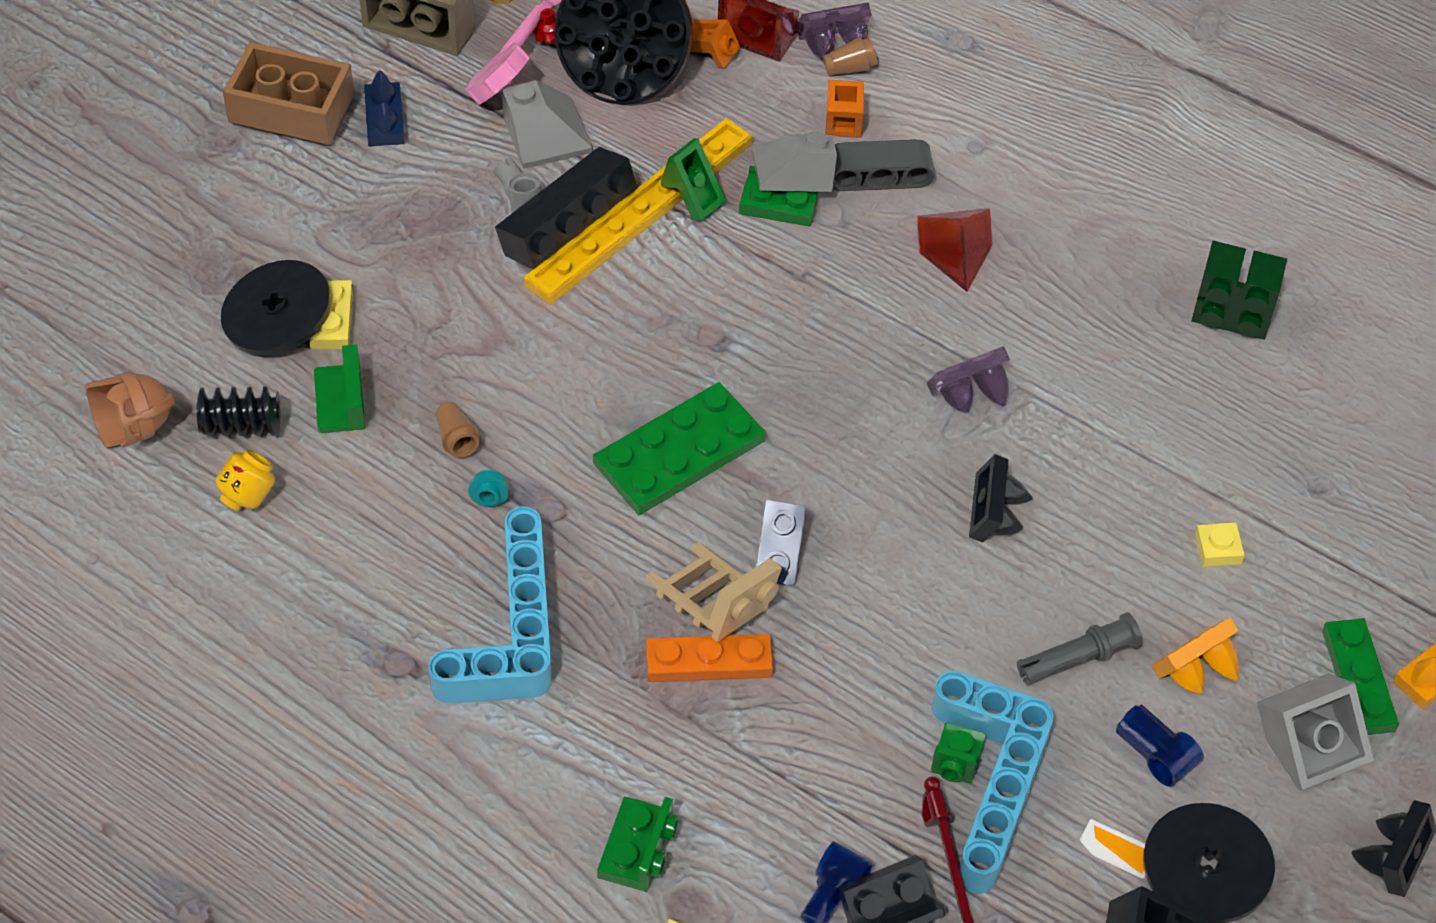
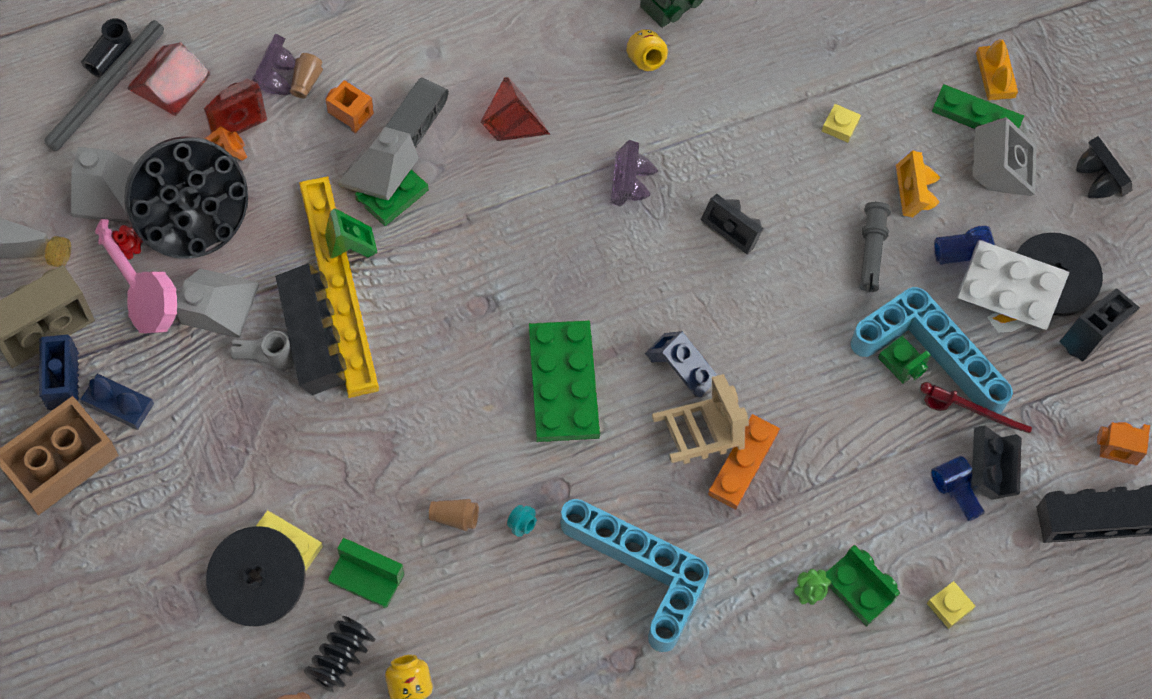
camera: 60 degrees left, 10 degrees up
(376, 47) = (58, 370): none -> dark blue brick
(599, 790) = (812, 586): none -> bright green plant
(1137, 805) = (1012, 284): none -> white brick
(1138, 312) = (647, 50): none -> yellow head

